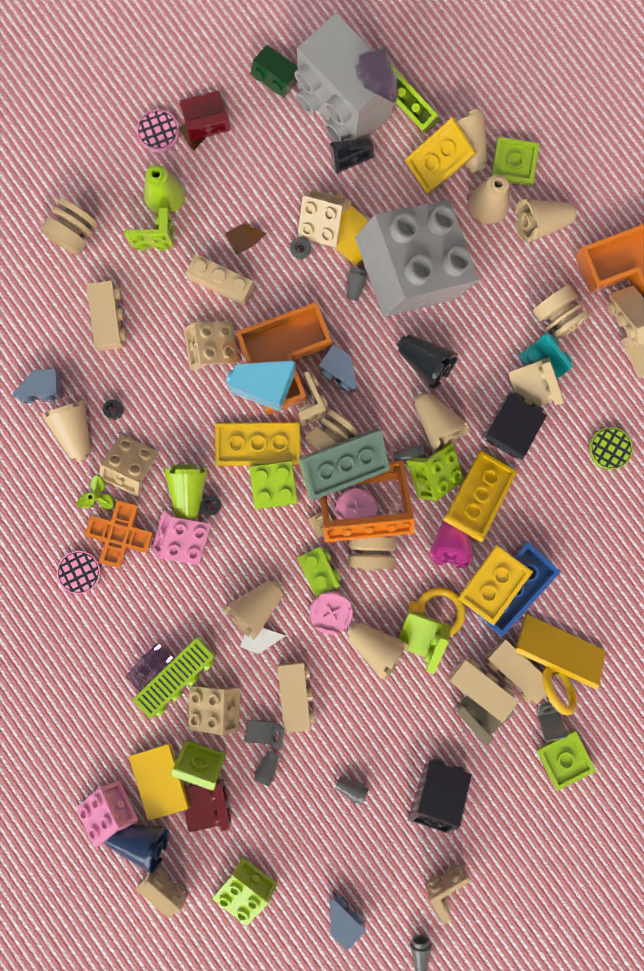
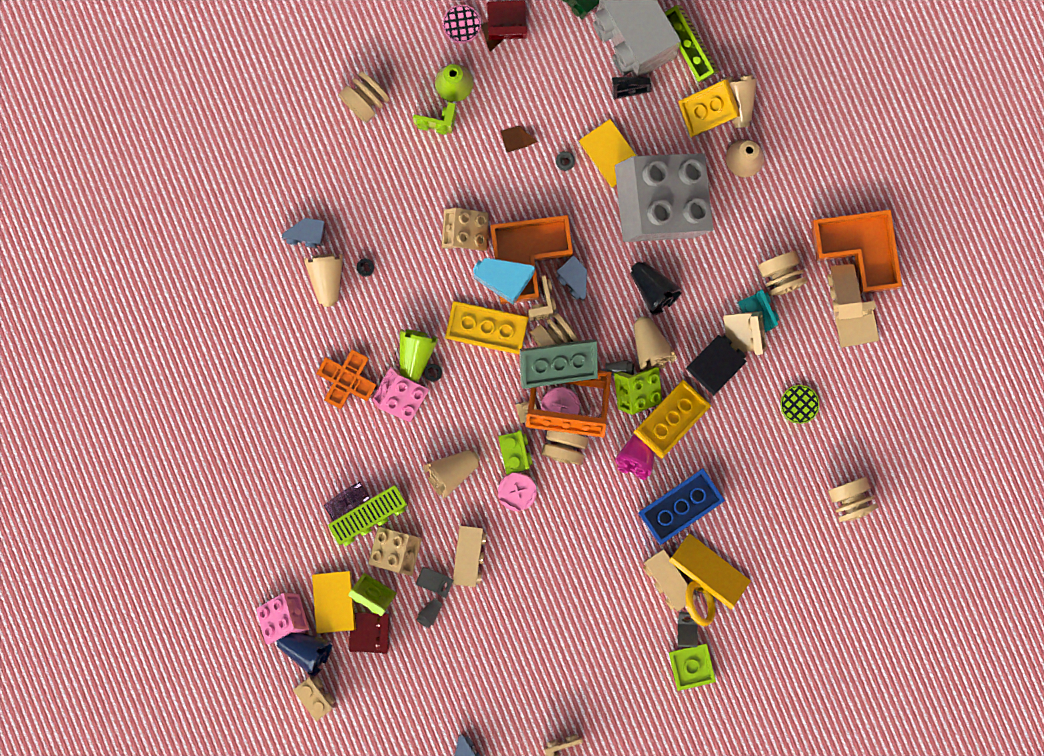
camera: 15 degrees right, 0 degrees up
(79, 572) = (303, 404): tile -> none
(88, 499) = (325, 342): lime plant -> none
(106, 315) = (378, 182): tan brick -> none
(127, 464) = (367, 320): tan bracket -> none
(220, 280) = (487, 174): tan brick -> none
(245, 892) = (386, 714): lime bracket -> none
(262, 641) = (449, 503): white sticker -> none
(273, 484) = (492, 367): lime plate -> none
(322, 217) = (591, 137): tan bracket -> none
(352, 790) = (500, 649): dark grey cone -> none
(355, 282) = (607, 204): dark grey cone -> none
(377, 74) = (662, 38): clear purple slope -> none
(377, 648) = (550, 531): tan cone -> none
(419, 606) = (593, 507): yellow piece -> none
(426, 638) = (592, 531): lime bracket -> none
(440, 796) = (574, 672): black slope -> none
(478, 719) = (631, 608): dark tan bracket -> none
(483, 689) = (634, 587): tan brick -> none
(494, 585) = (664, 498): yellow tile -> none
(515, 160) = (776, 126): lime plate -> none
(542, 217) = (788, 184): tan cone -> none

